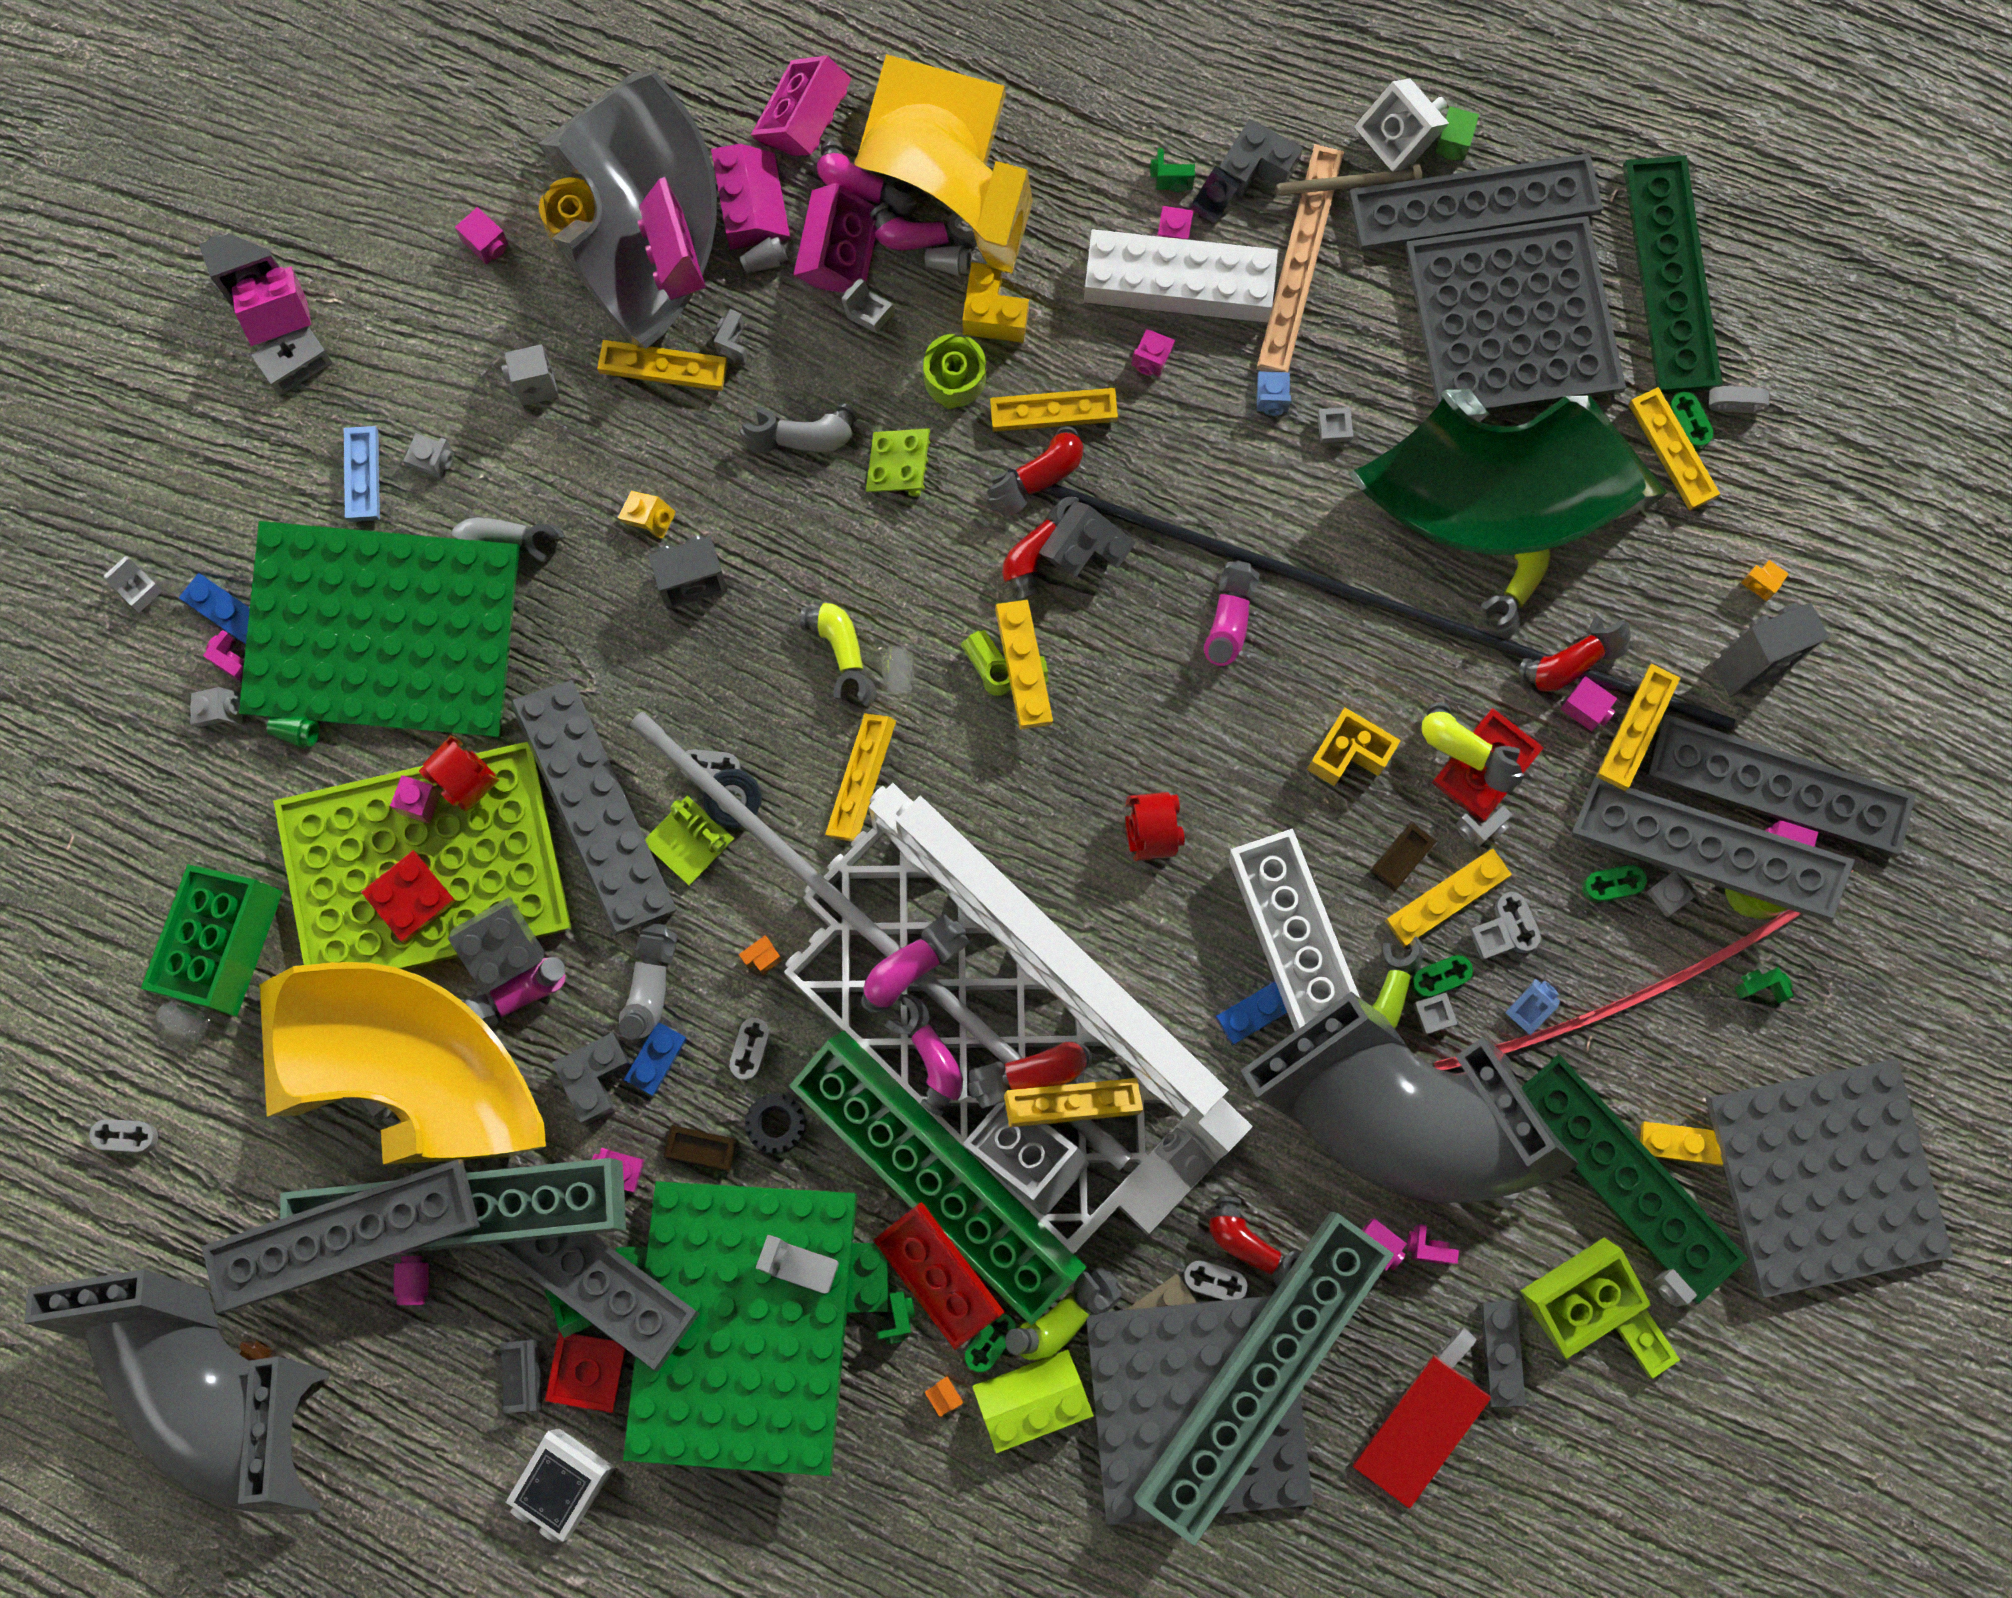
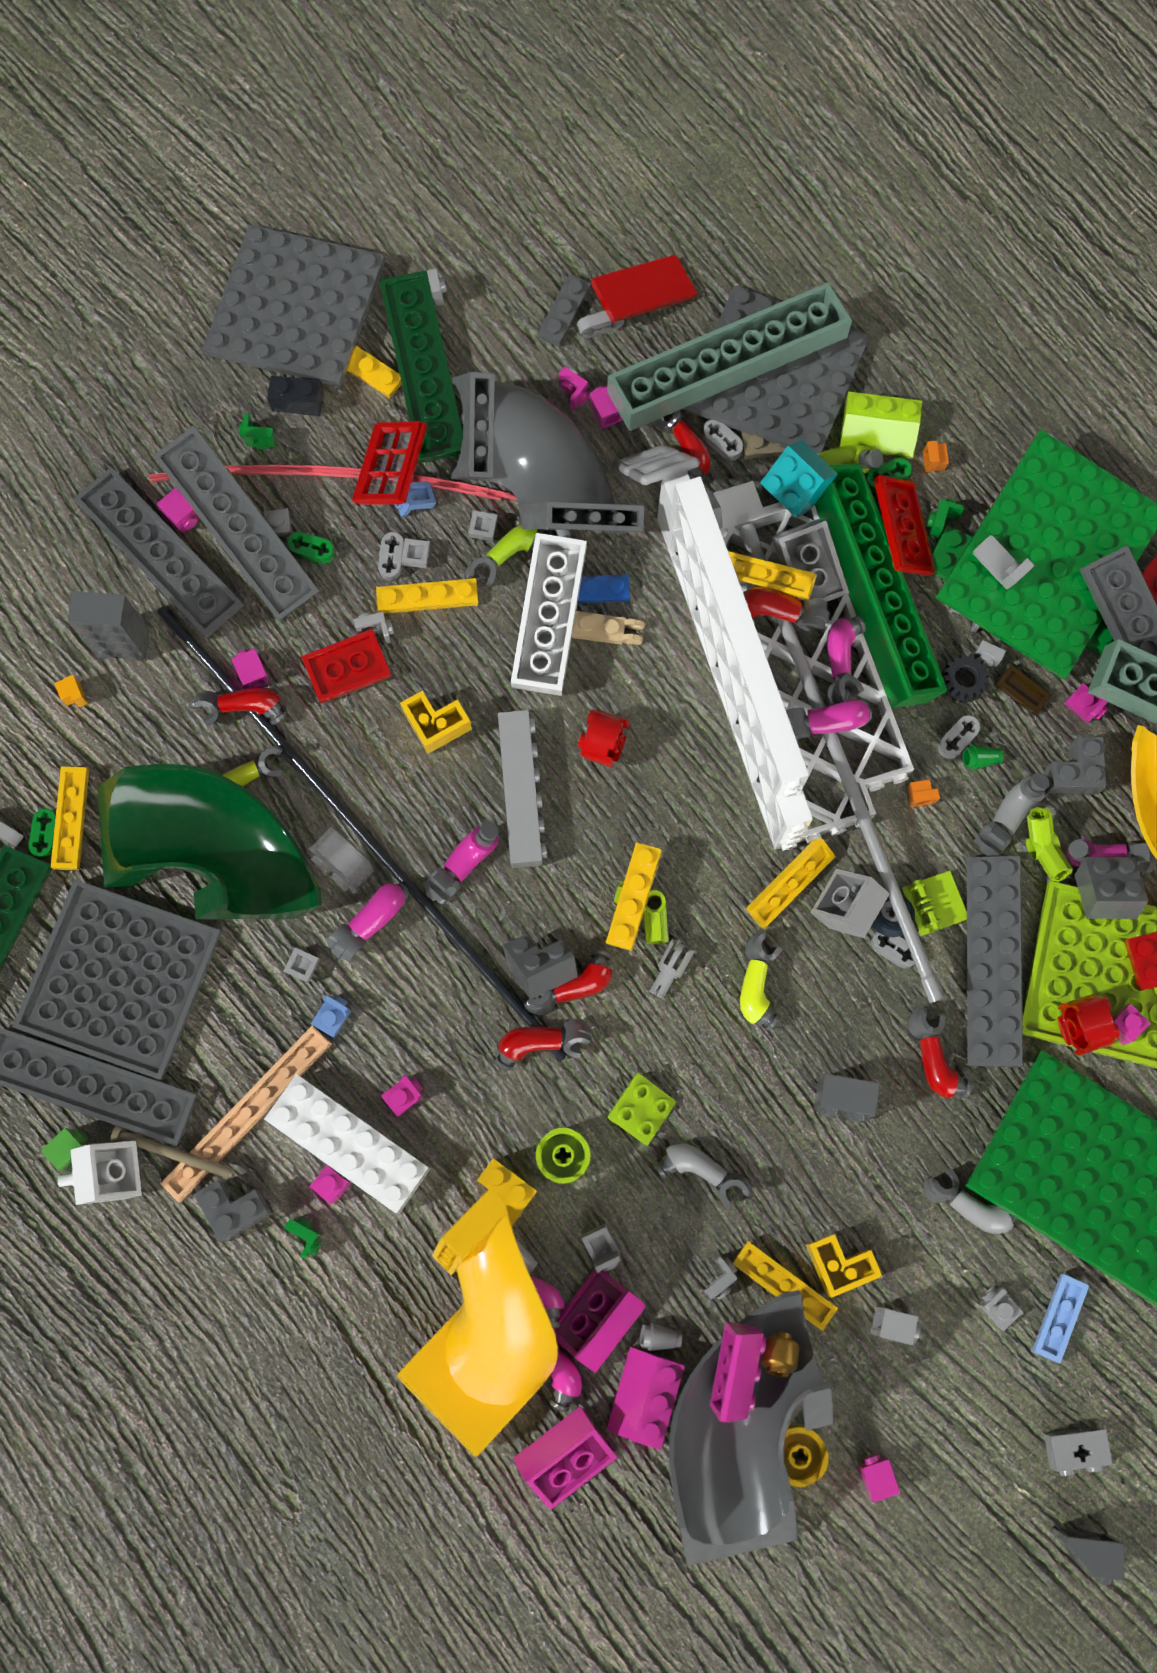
camera: 150 degrees left, 0 degrees up
(270, 305) = (1080, 1500): dark pink brick -> none
(590, 963) = (1045, 845): none -> lime piece
(598, 651) = (938, 1074): none -> piece
(612, 400) = (836, 1271): none -> yellow brick
(634, 282) = (780, 1355): none -> pearl gold head
(647, 513) = (853, 1168): yellow bracket -> none
(655, 1059) = (1027, 763): blue plate -> none
(712, 1036) = (980, 756): none -> green cone
(760, 1166) = (989, 653): none -> light grey plate
(783, 778) = (850, 903): none -> light grey brick
(898, 670) = (724, 946): clear brick -> none
(944, 615) = (668, 972): none -> light grey arm
(1053, 409) = (503, 1088): yellow plate -> none
(1094, 1247) = (798, 478): none -> teal brick
(1214, 727) = (520, 789): none -> light grey brick
(1215, 195) = (283, 1197): black bracket -> none
(1224, 966) = (606, 628): none -> tan hinge
(1273, 1168) = (655, 464): none -> light grey bar
(1291, 500) = (374, 915): none -> dark pink piece
(1358, 543) = (342, 860): none -> clear brick
(1403, 856) = (441, 638): dark brown tile -> none
(1438, 969) = (465, 545): green beam -> none
(1453, 739) = (363, 693): piece -> none
(1586, 1297) = (494, 311): lime slope -> none
(1588, 1027) = (389, 463): none -> red piece
(1638, 727) = (228, 634): yellow plate -> none
(1647, 1344) = (471, 273): lime plate -> none
(1750, 1056) = (295, 395): none -> black brick

